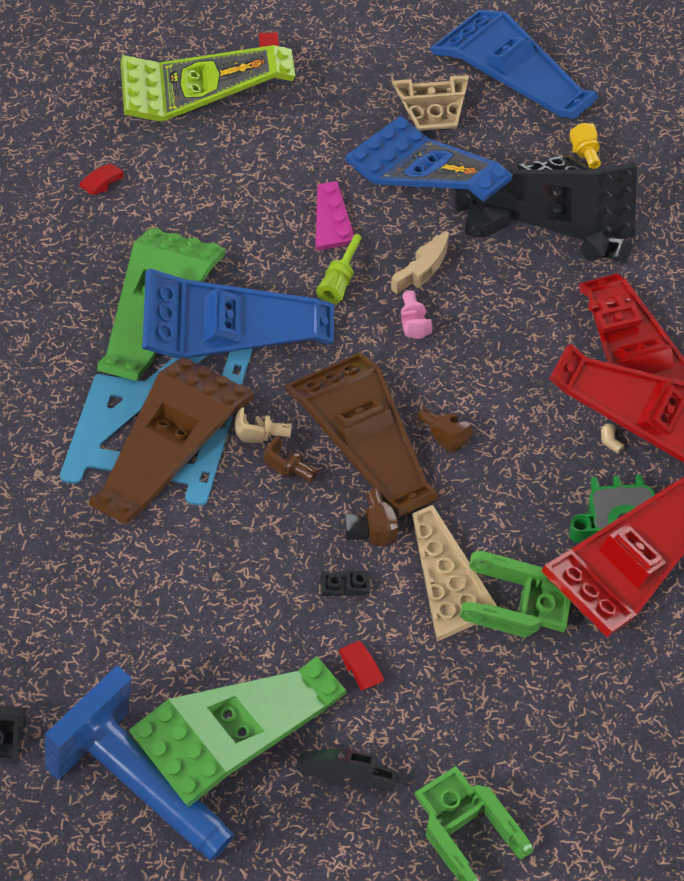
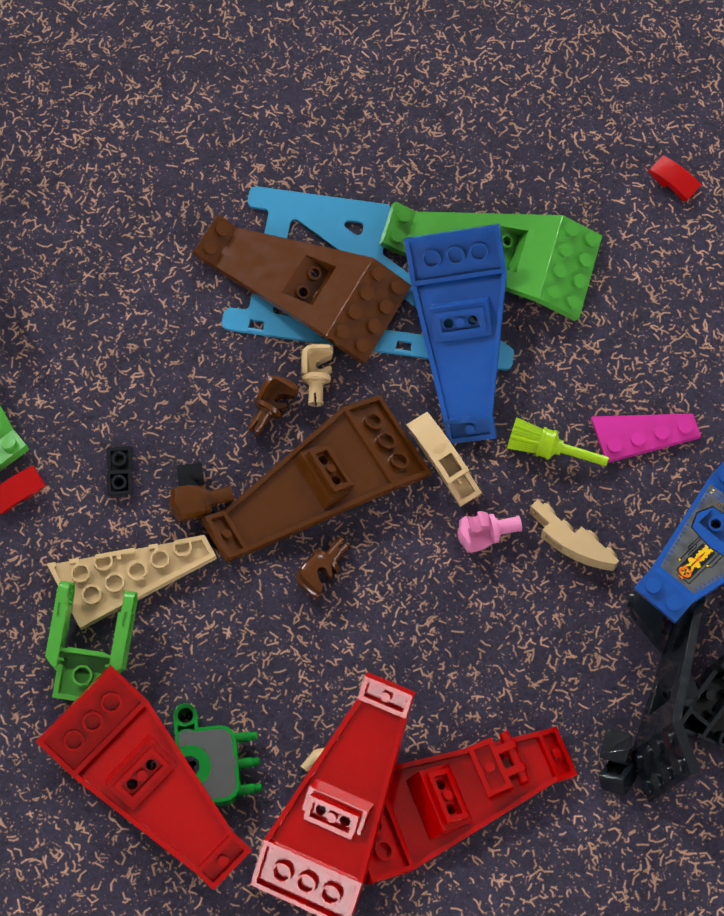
camera: 90 degrees right, 15 degrees up
(346, 339) = (444, 458): none -> tan slope

